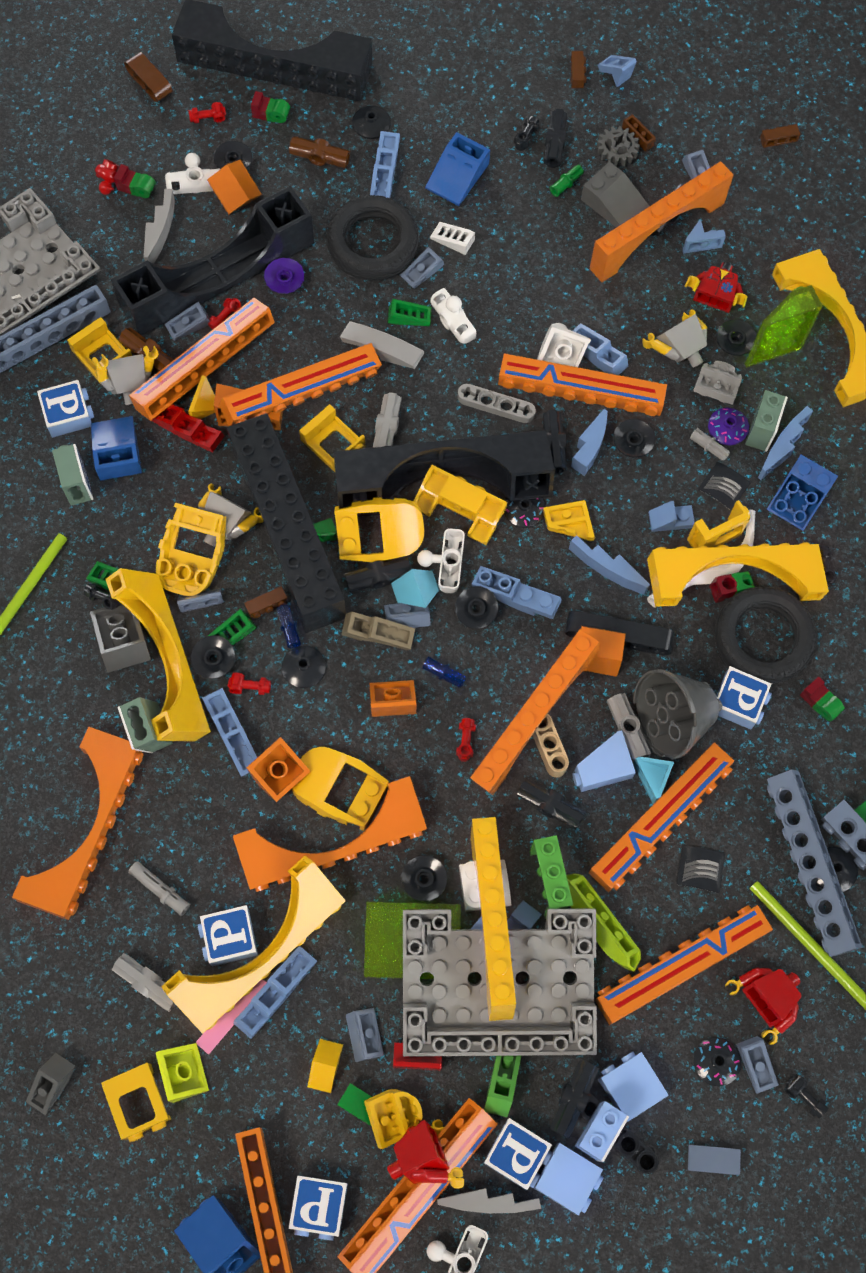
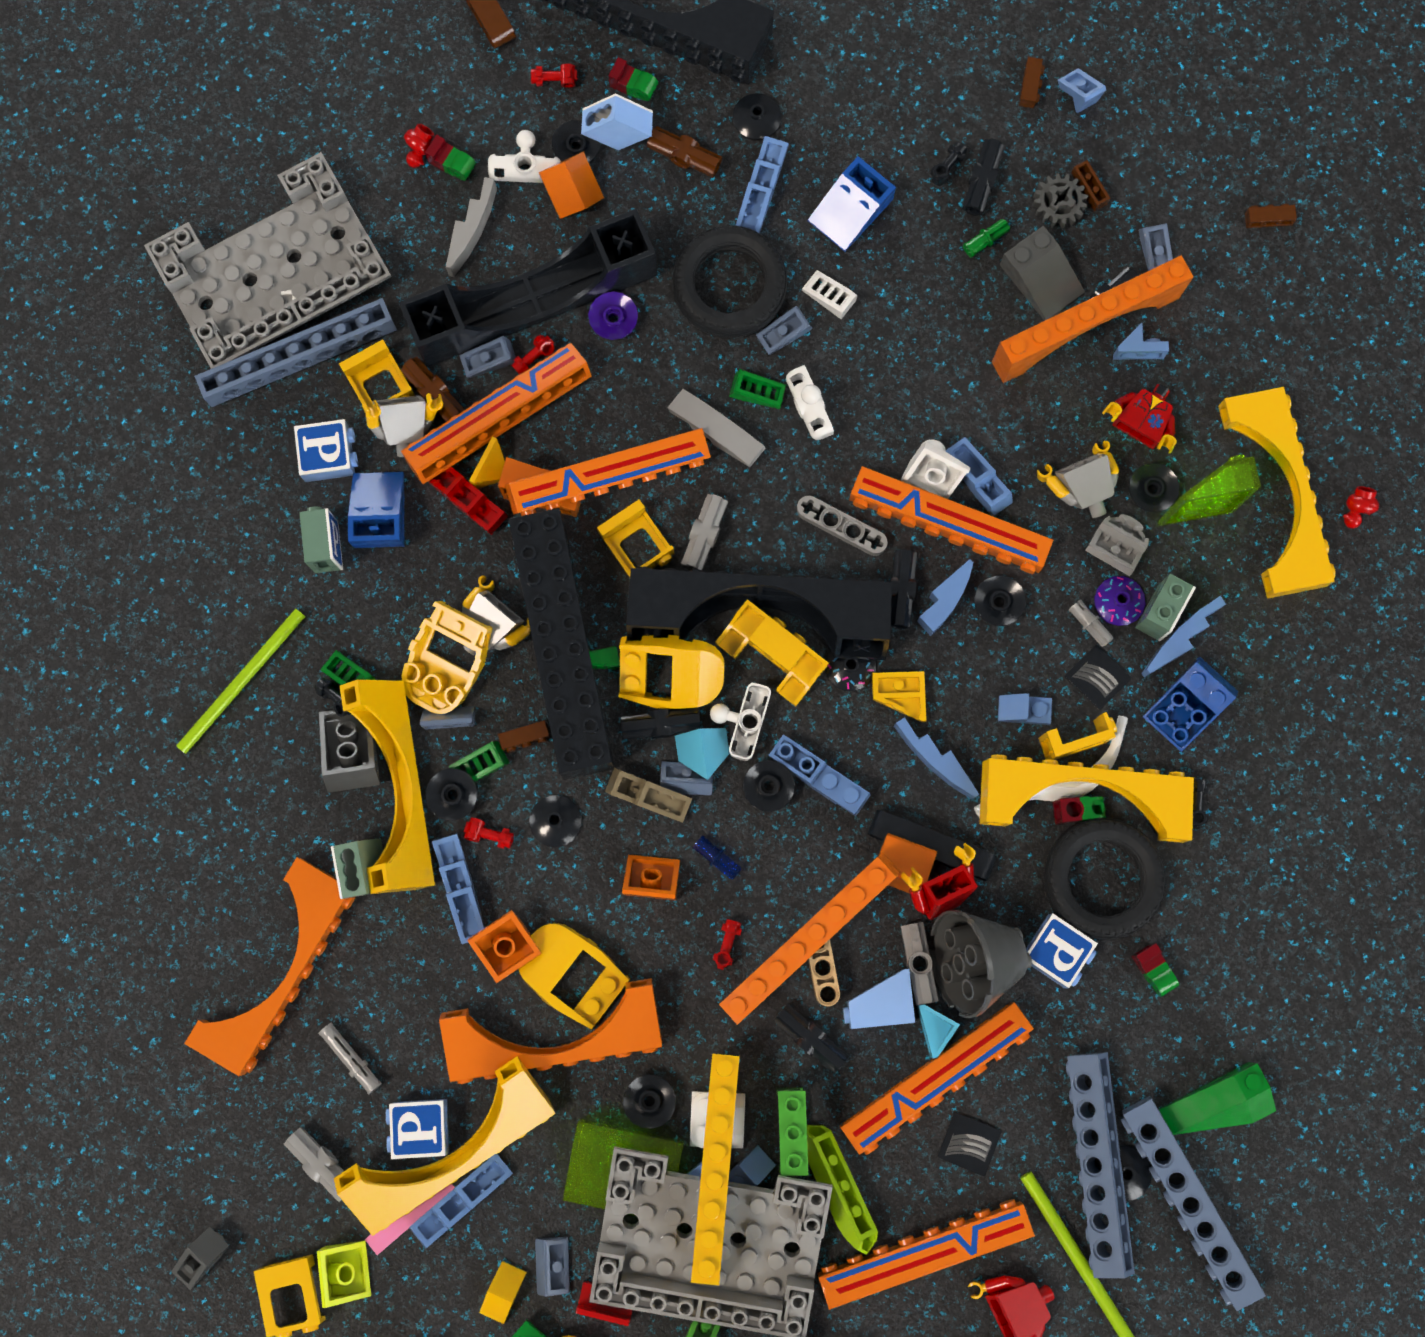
camera: 15 degrees right, 10 degrees up
(263, 133) = (617, 122): none -> light blue piece
(288, 626) = (545, 769): clear blue axle -> none
(638, 659) = (946, 890): none -> red torso

